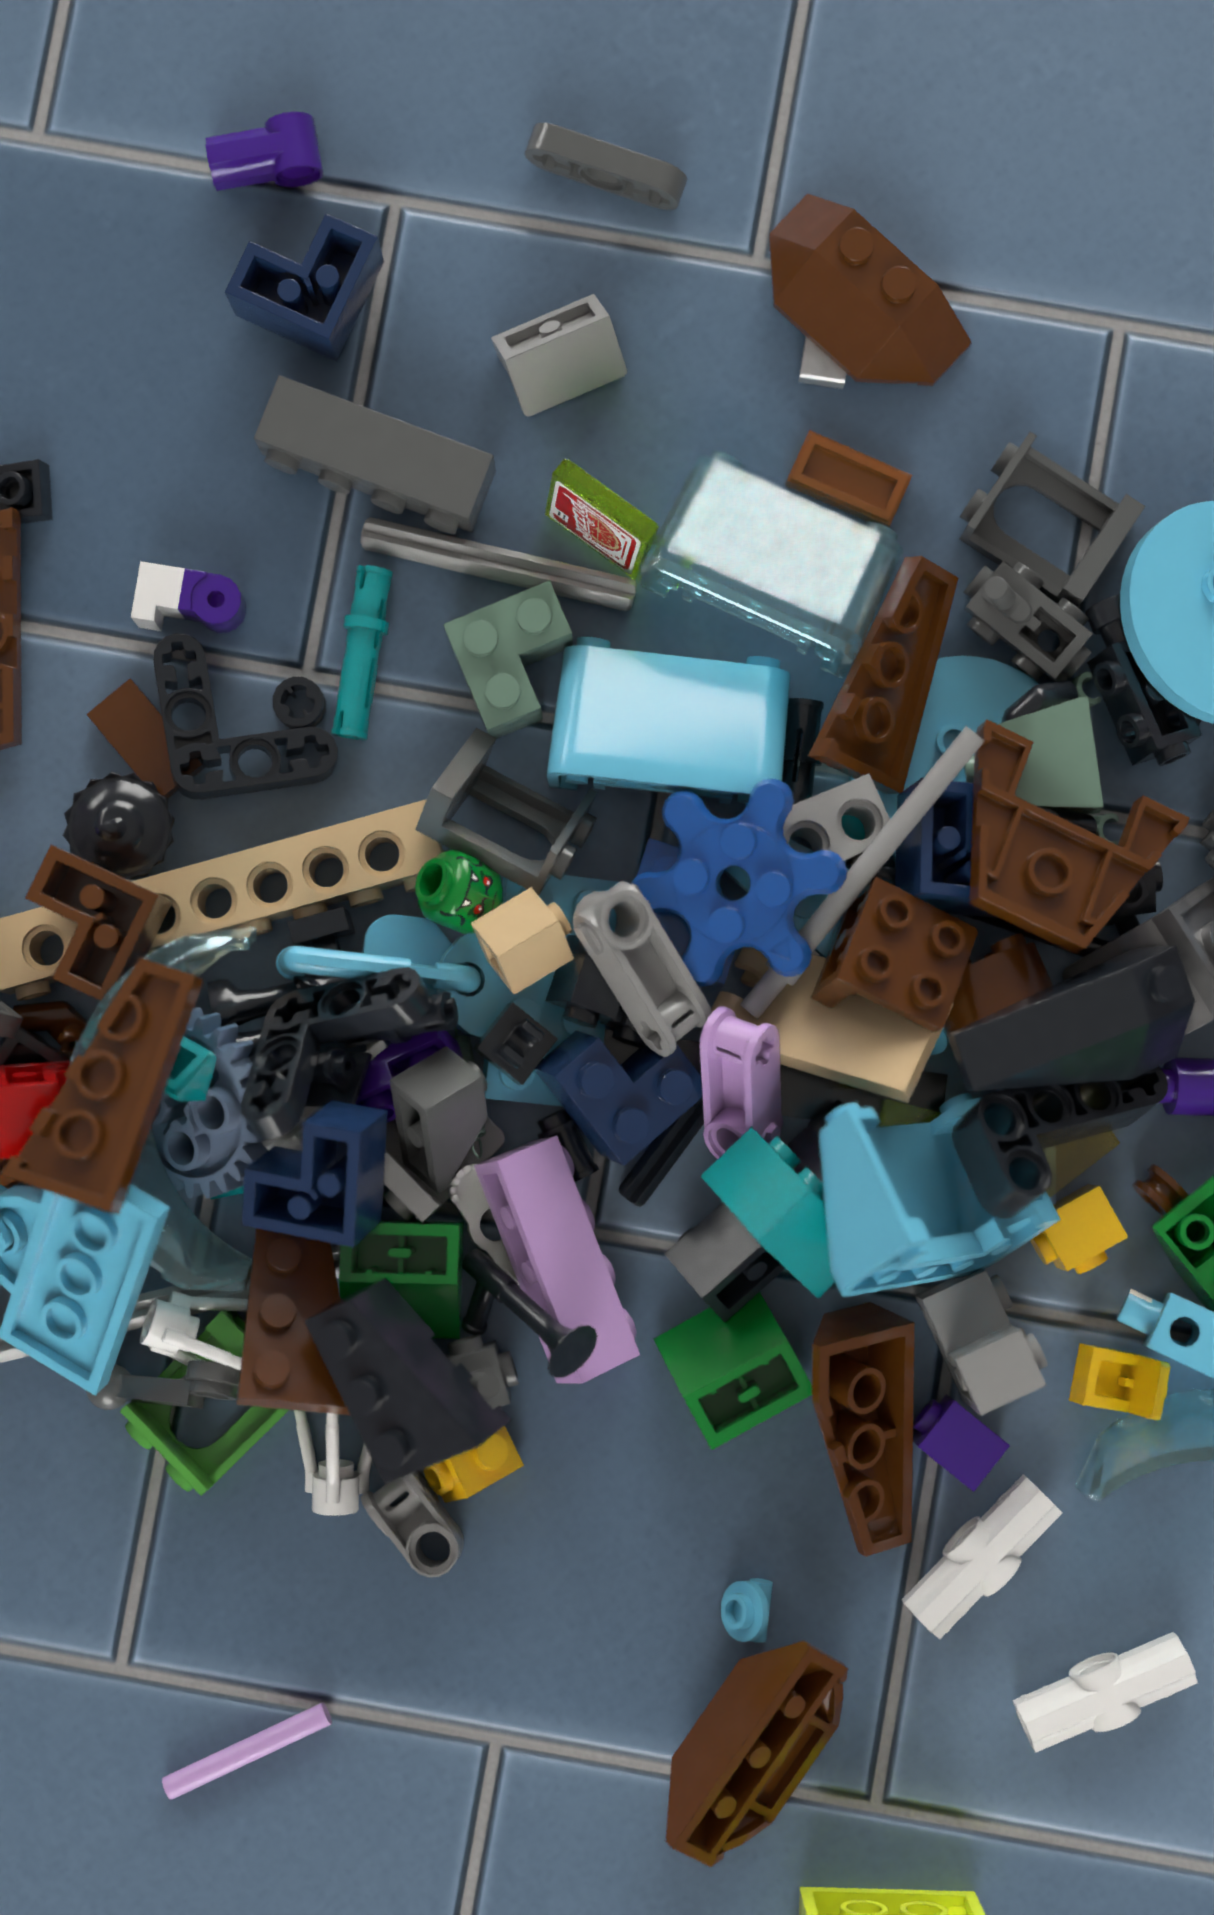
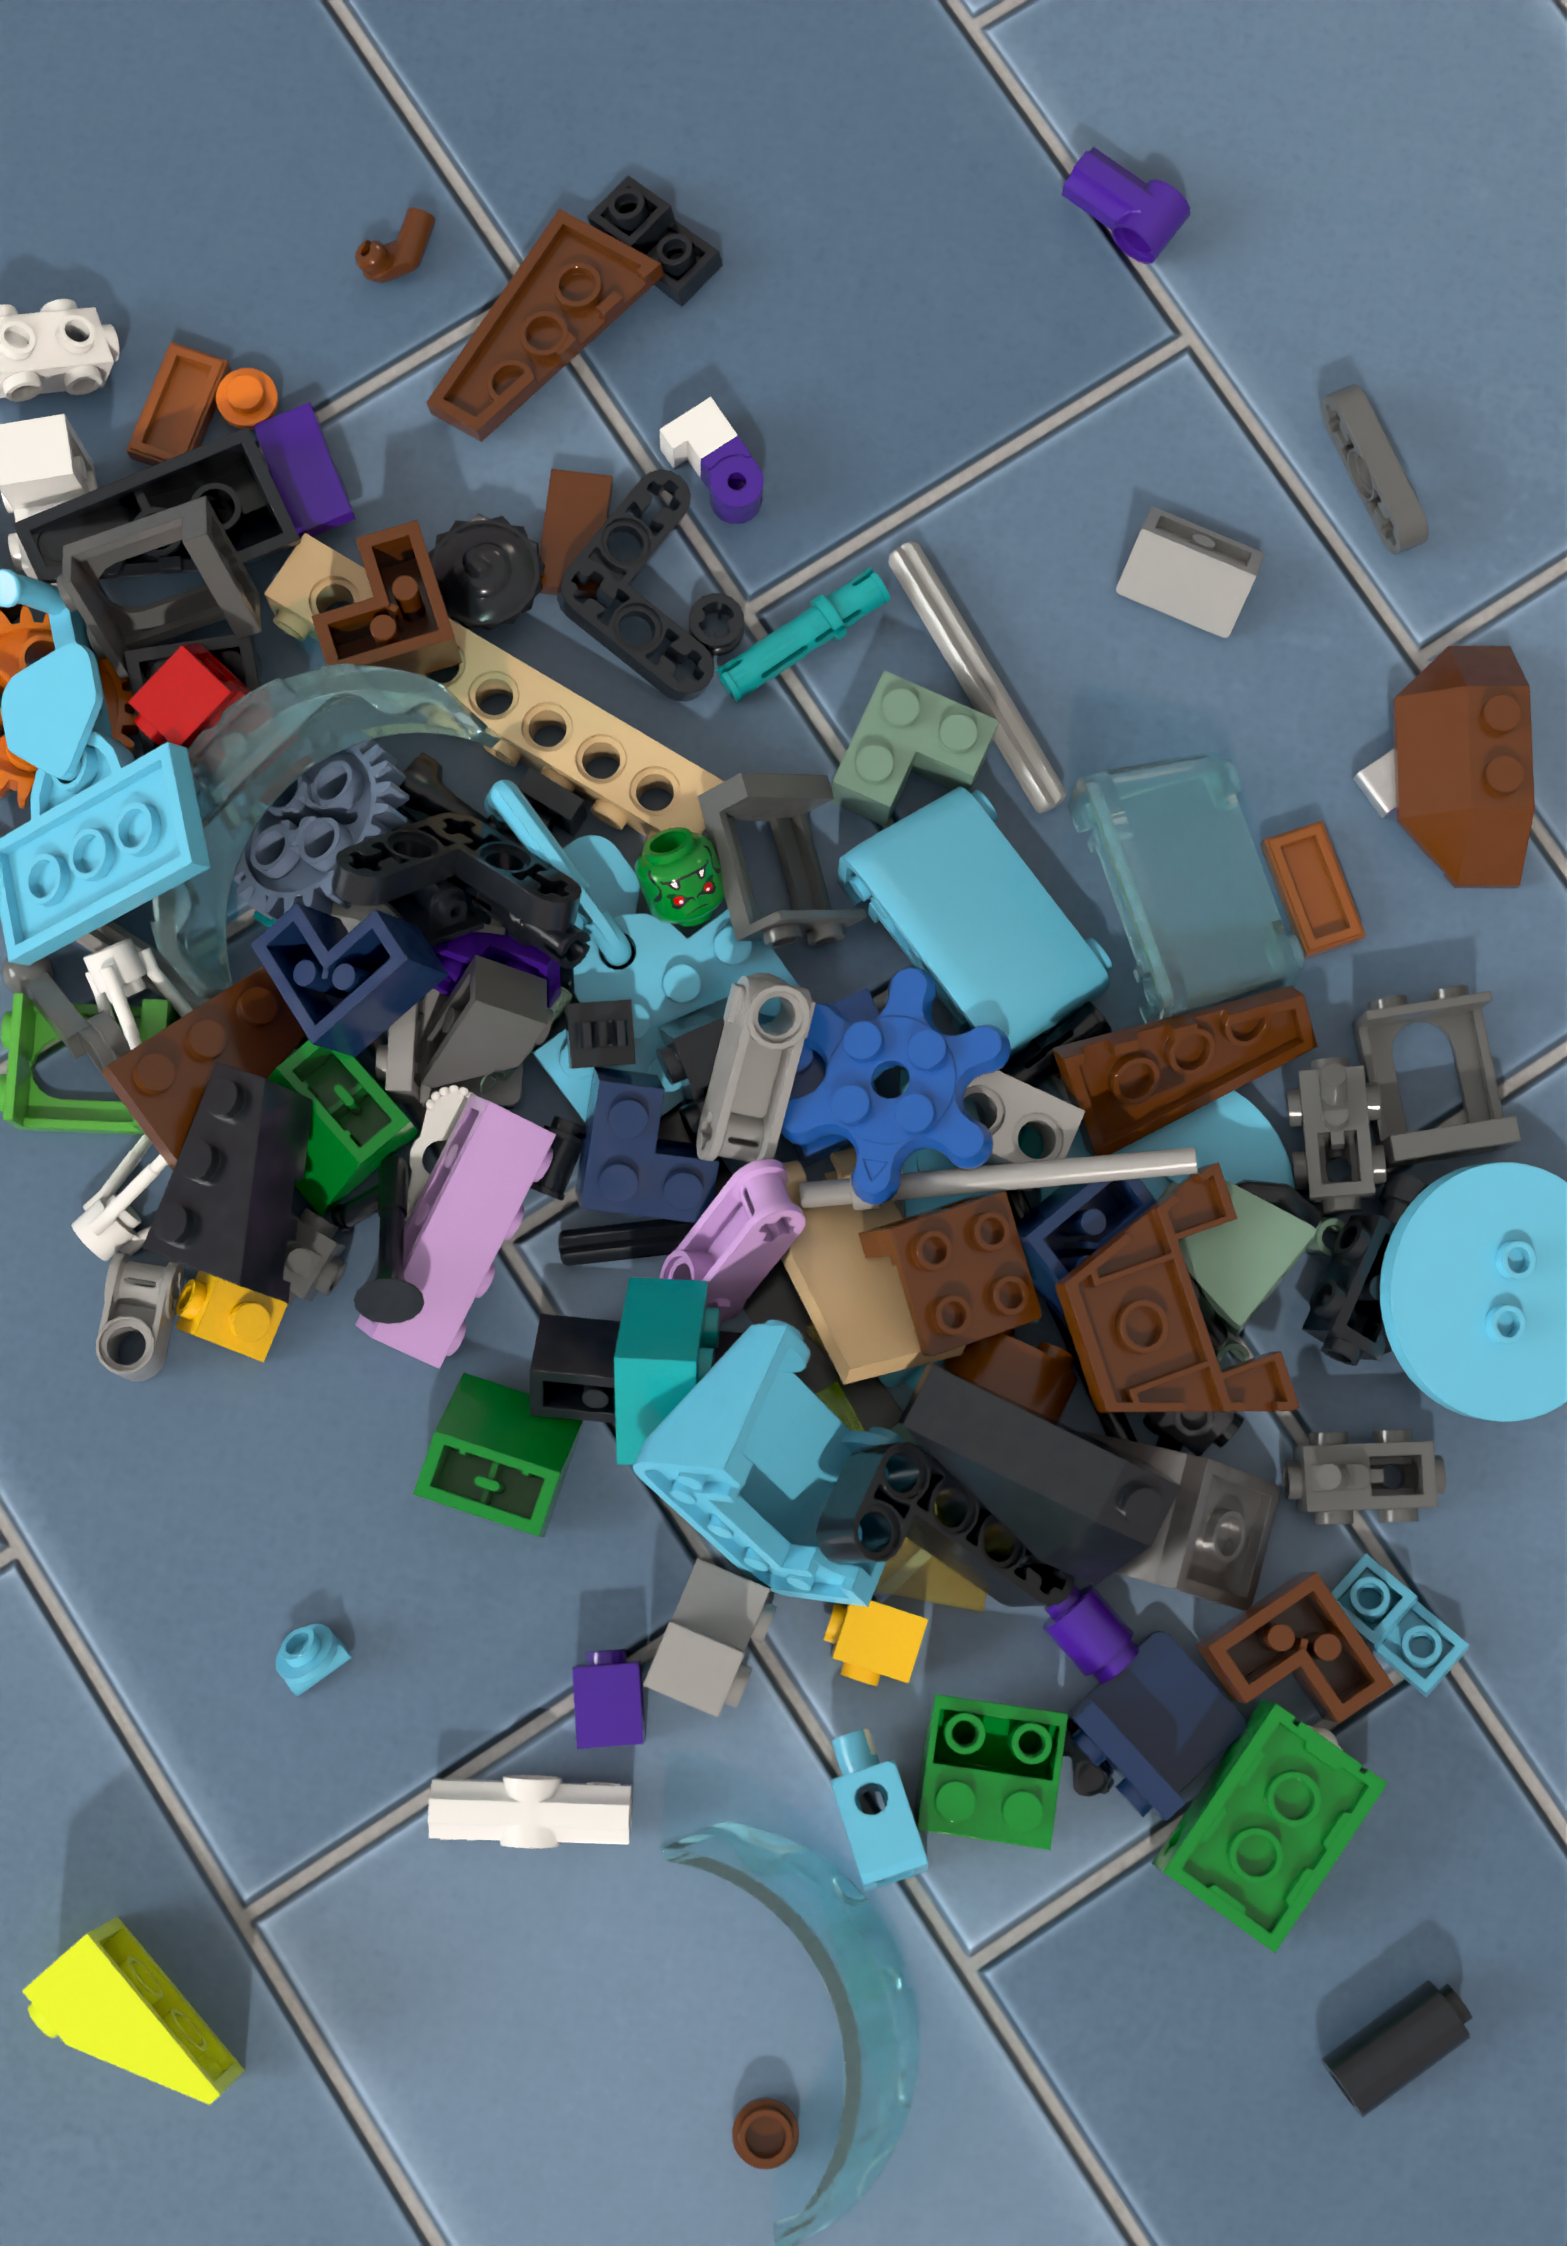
camera: 40 degrees right, 5 degrees down
(56, 1018) = (279, 654): reddish brown arm -> none
(103, 1114) = (241, 743): reddish brown wing -> none
(191, 1072) = (330, 780): teal slope -> none
(314, 299) = (1051, 342): dark blue brick -> none
(374, 455) = (969, 500): dark grey brick -> none
(524, 939) = (689, 959): tan brick -> none
(600, 517) = (1087, 711): tile -> none
(752, 1748) = (196, 1764): reddish brown wedge -> none
(867, 1418) = (556, 1601): reddish brown wedge -> none
(1105, 1691) = (511, 2022): white piece -> none
(1120, 1381) = (782, 1791): yellow bracket -> none
(1160, 1190) = (973, 1677): reddish brown bush -> none

